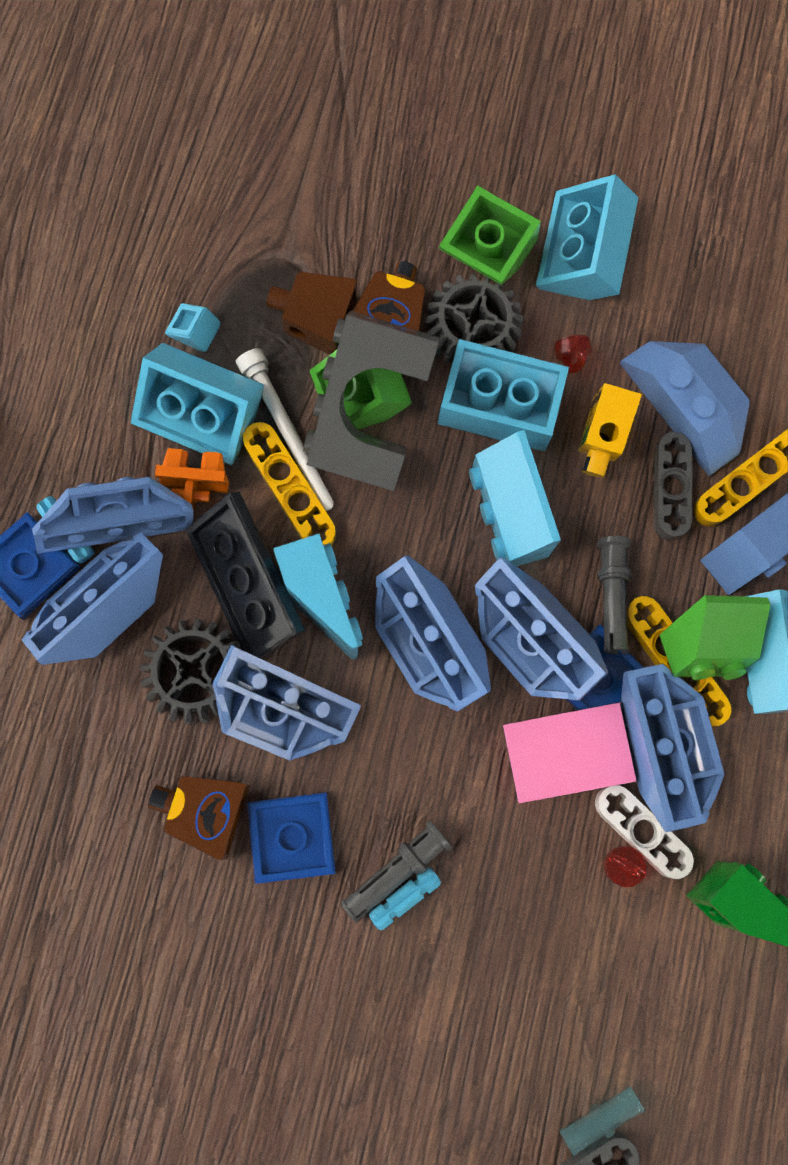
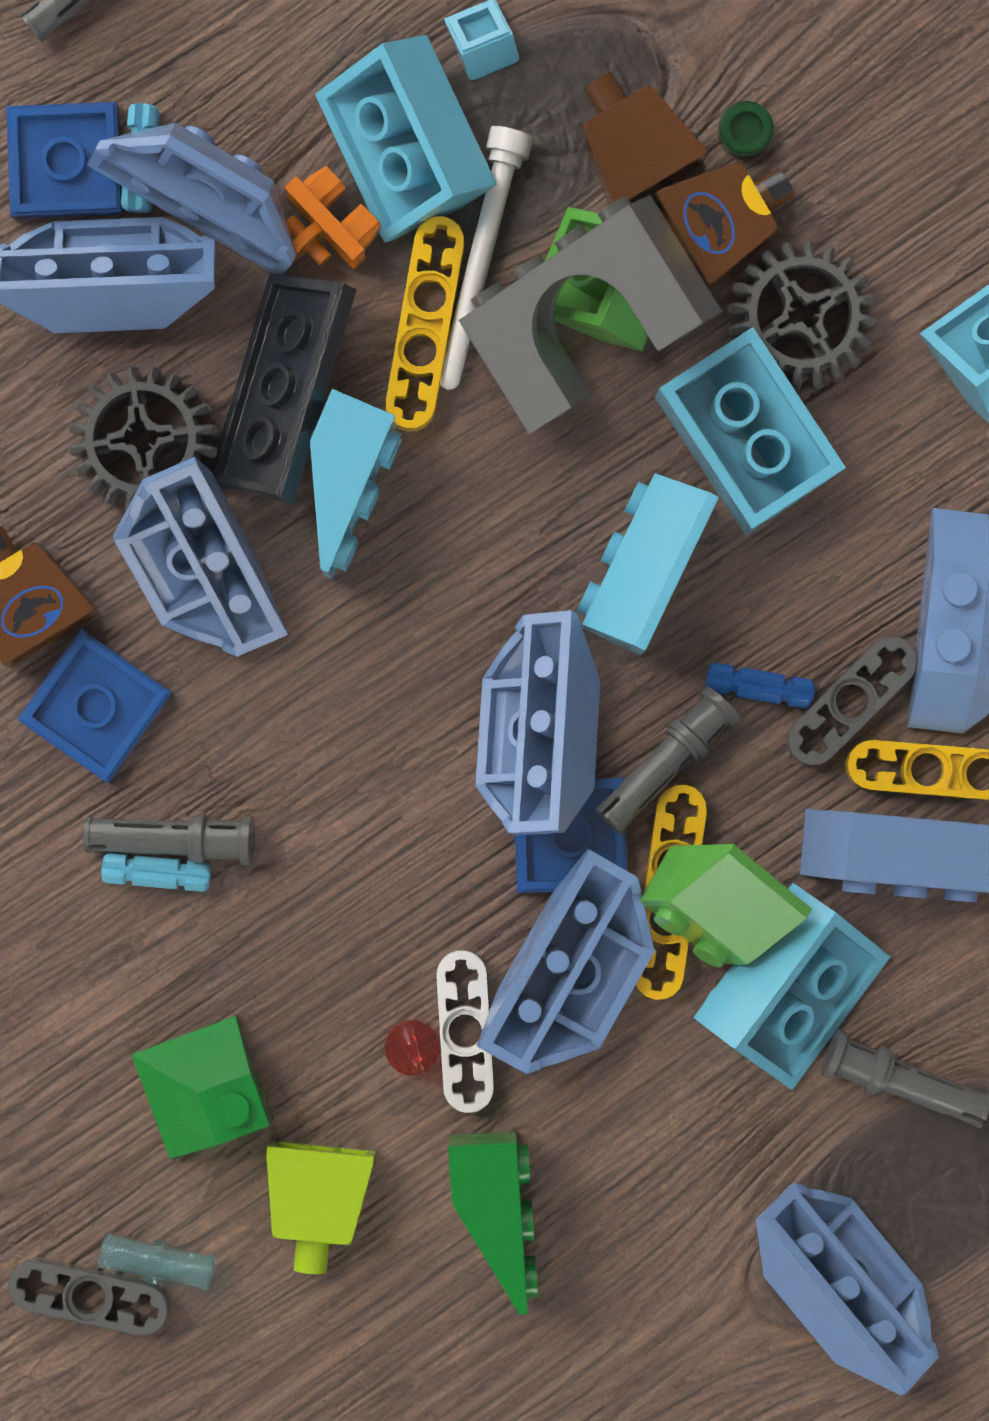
camera: 50 degrees right, 10 degrees up
(362, 262) = (745, 130): none -> dark green tile
(429, 636) = (426, 627): medium blue wedge -> none
(491, 236) = (905, 236): bright green slope -> none
(538, 996) = (203, 1088): none -> green slope
(569, 753) = (460, 880): bright pink tile -> none
(573, 348) = (888, 446): clear red tile -> none
(613, 416) = (849, 558): yellow torso -> none
(622, 517) = (760, 685): none -> blue axle
(655, 998) = (316, 1197): none -> lime torso

